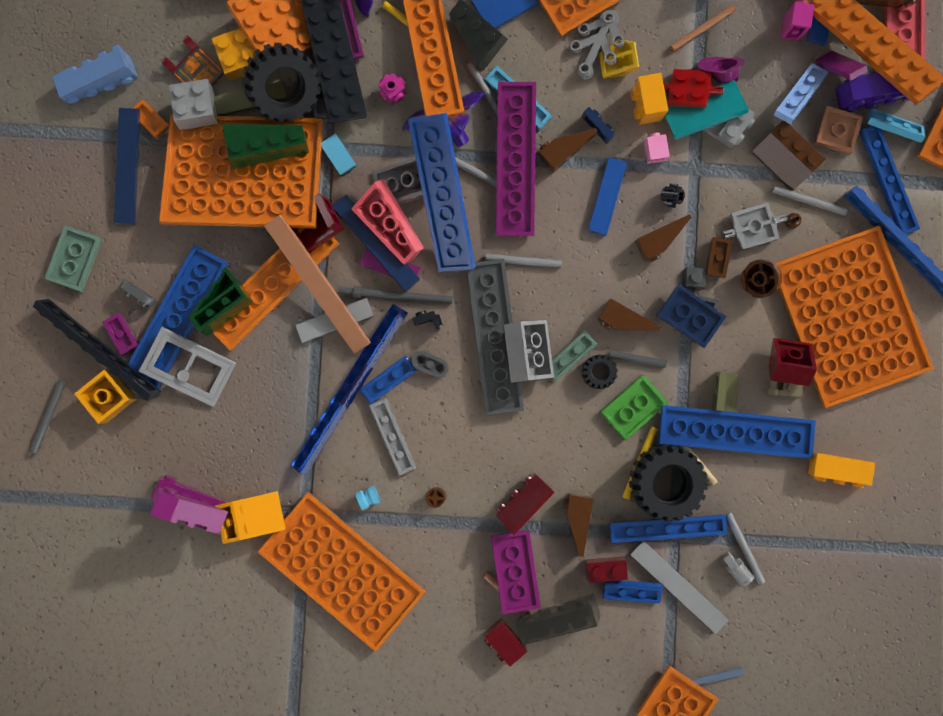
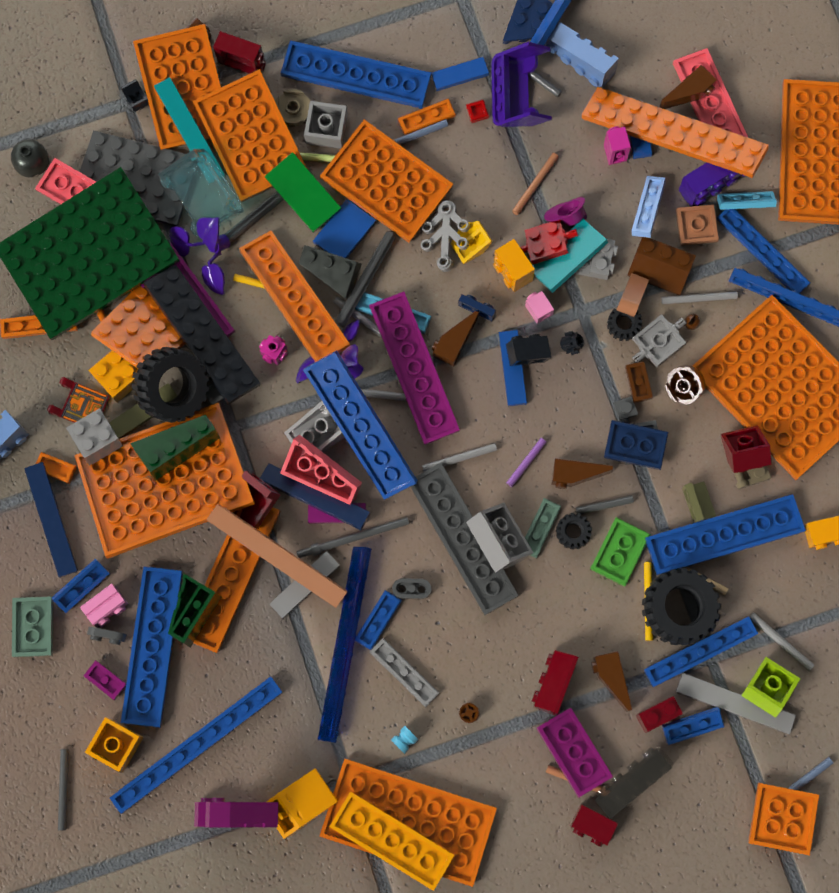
camera: 20 degrees left, 10 degrees down
(97, 349) = (95, 704): black plate -> none
(130, 238) = (80, 585): none -> blue plate
(145, 265) = (104, 606): none -> bright pink brick
(179, 382) = (181, 704): light grey door -> none
(180, 425) = (195, 745): none -> blue plate
(319, 584) = (392, 841): none -> light orange plate
(338, 154) = (246, 430): medium azure tile -> none
(423, 317) = (388, 547): black bracket -> none
(505, 55) = (365, 279): none -> dark grey axle
(582, 290) = (526, 462): none -> medium lavender bar
(629, 186) = (528, 350): none -> black brick
(658, 241) = (575, 390): reddish brown slope -> none
(717, 588) = (770, 687): none -> lime brick
(733, 185) = (623, 333): none -> black tyre
(738, 570) = (784, 661): light grey hinge -> none
(749, 173) = (632, 295): none -> nougat beam
(841, 65) = (673, 168): magenta tile -> none

